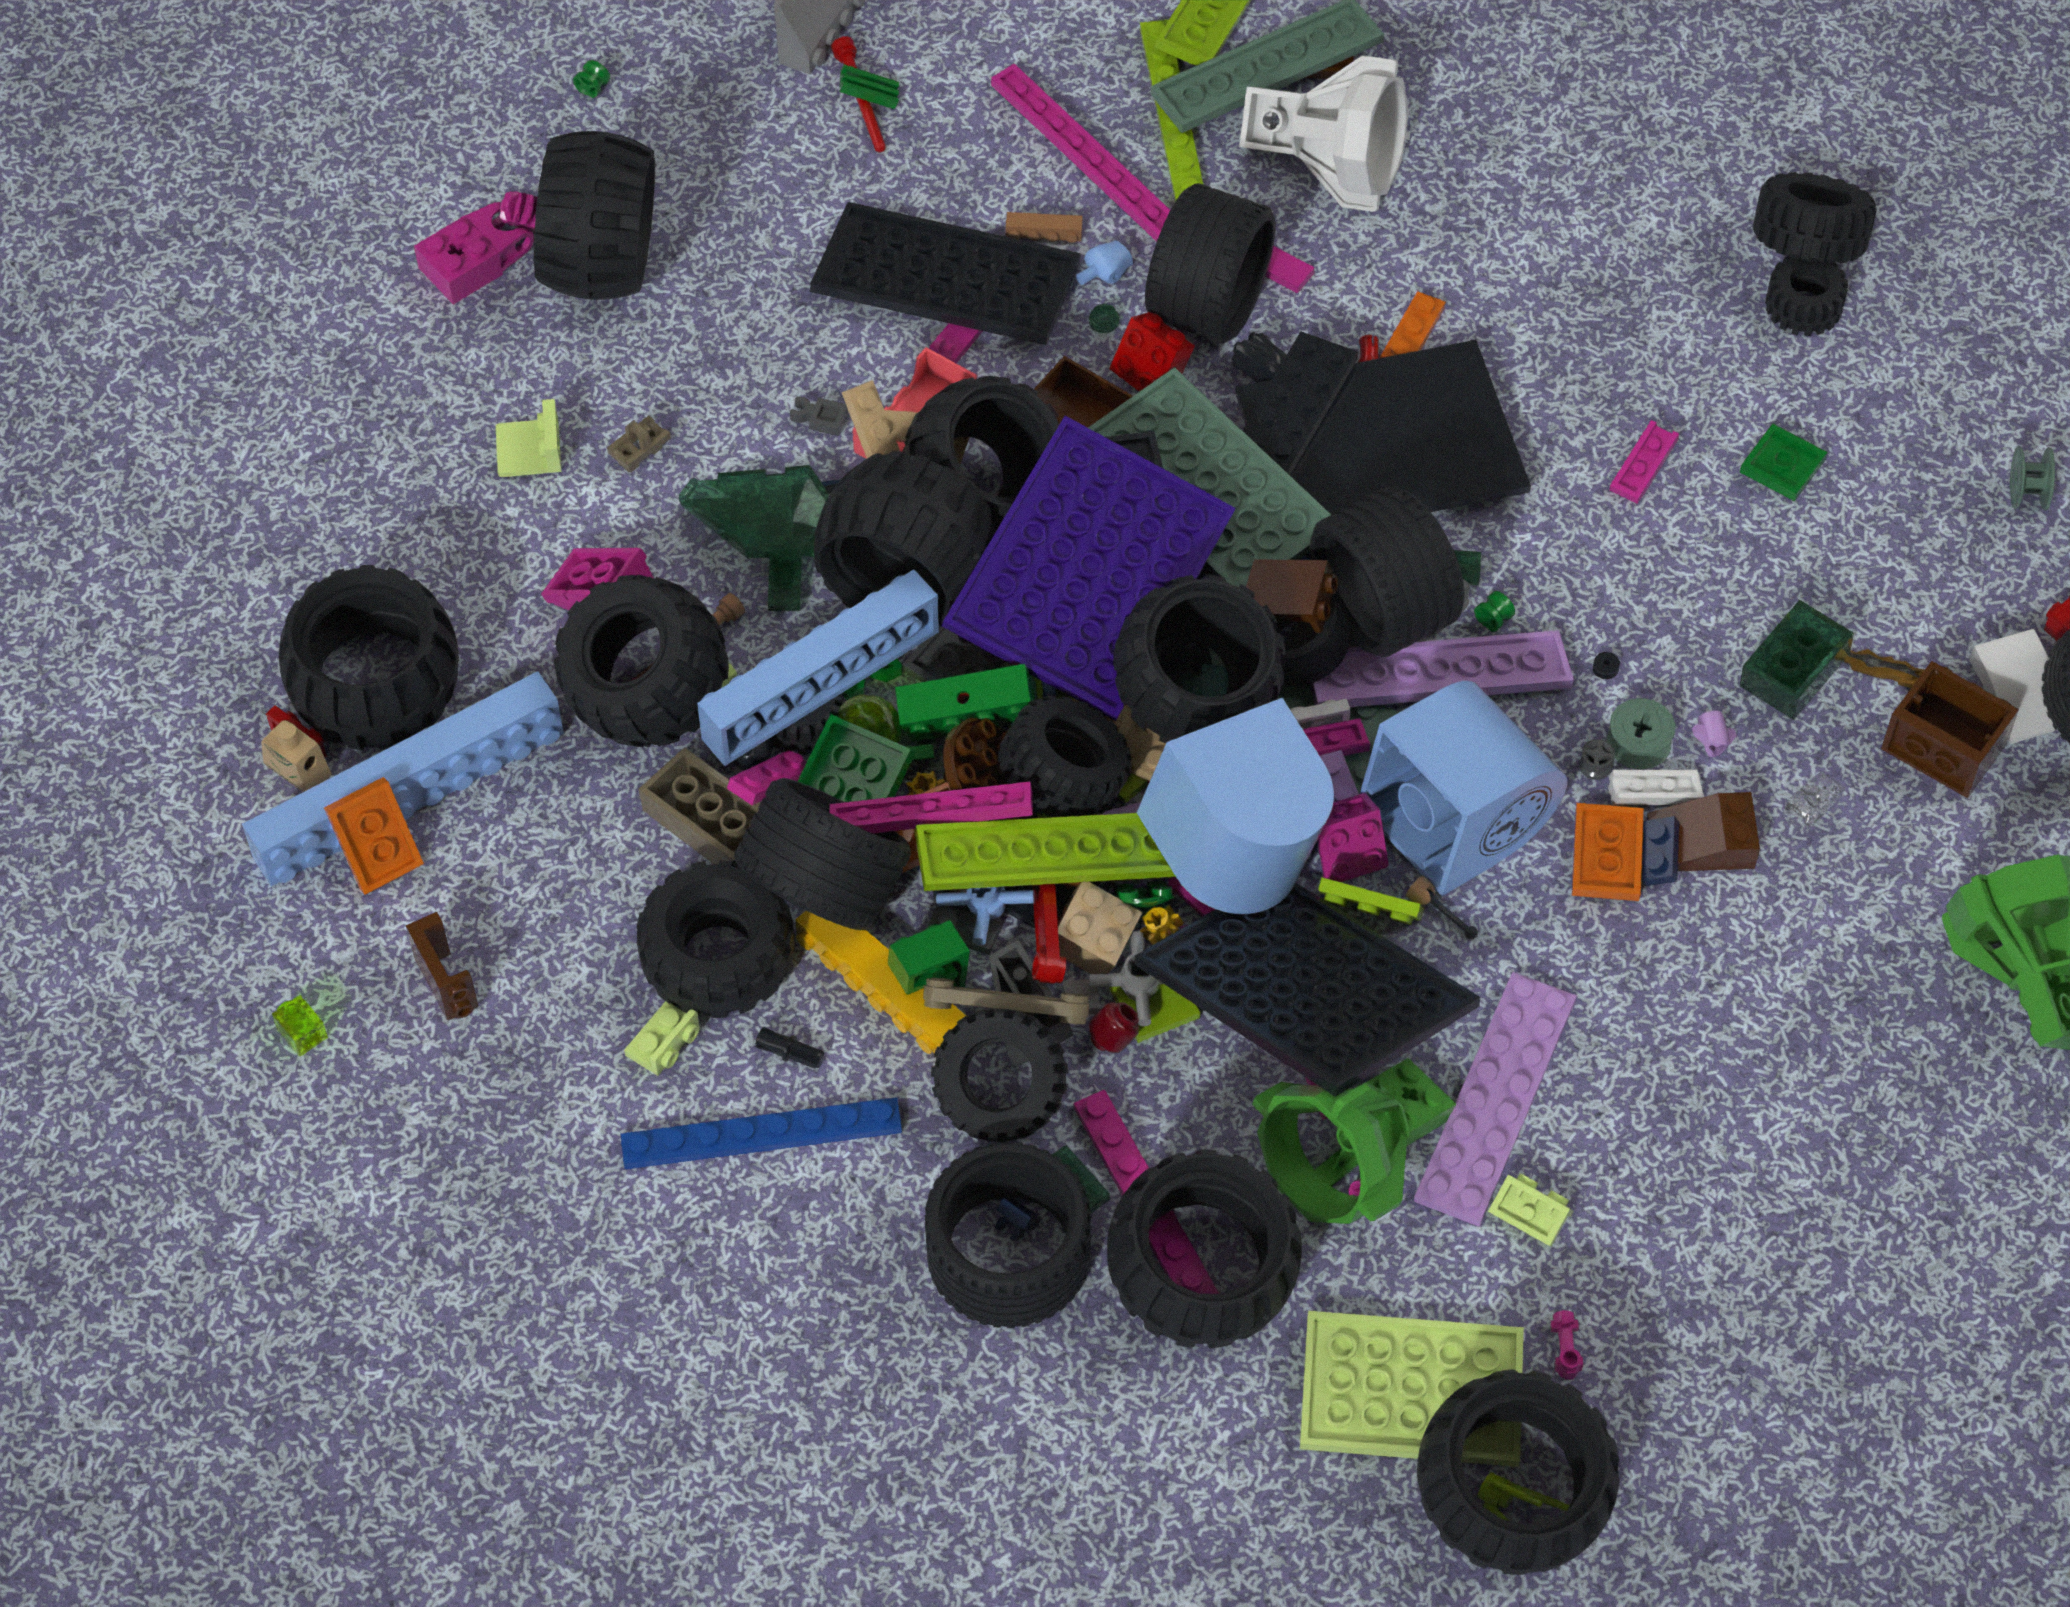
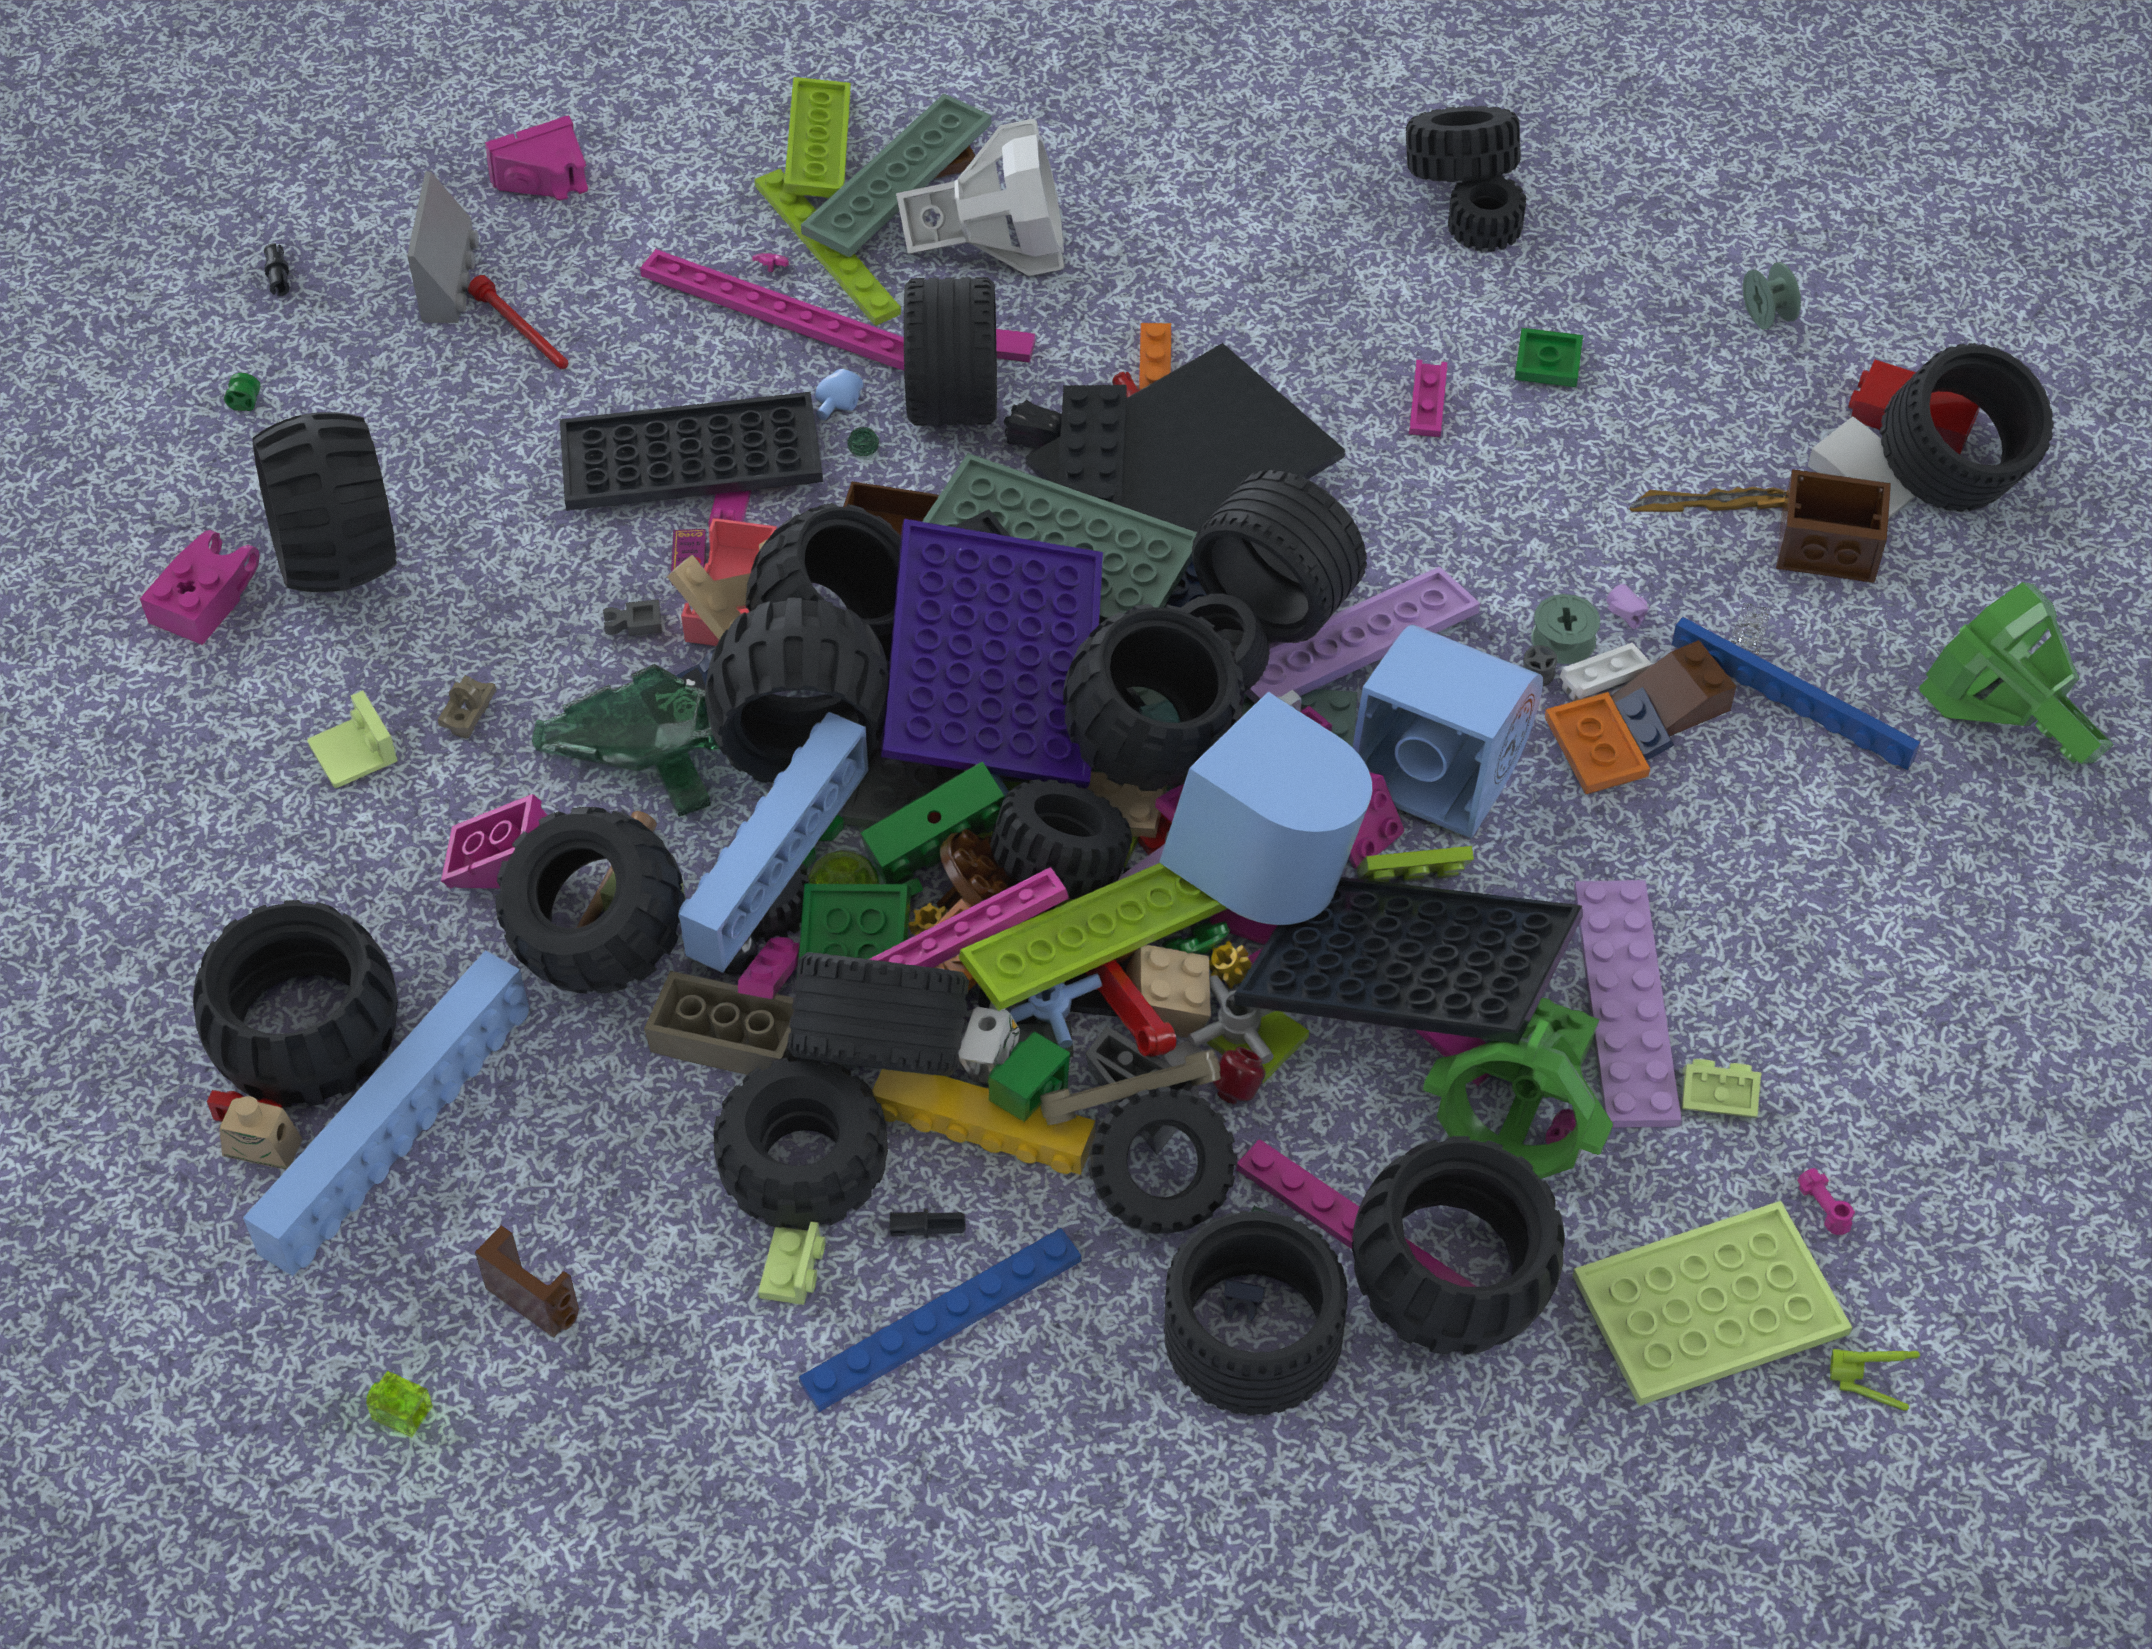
camera: 25 degrees left, 5 degrees down
(373, 835) = (389, 1177): orange plate -> none
(519, 210) = (241, 528): dark pink gear -> none
(869, 86) = (525, 312): green tile -> none
(896, 371) = (688, 543): none -> magenta tile
(913, 911) = (988, 1041): none -> white torso
(1044, 226) = (761, 380): medium nougat piece -> none
(1113, 109) = (771, 259): none -> dark pink plant
(1149, 351) = (930, 452): red brick -> none
(1294, 589) = (1206, 594): reddish brown panel -> none
(1423, 892) = (1454, 838): hinge -> none
(1494, 611) = (1375, 573): green wheel -> none
(1568, 1422) = (1921, 1283): black tyre -> none
(1606, 665) = (1496, 583): black piece -> none
(1796, 659) = (1665, 515): clear green brick -> none
(1824, 883) = (1801, 696): none -> blue plate

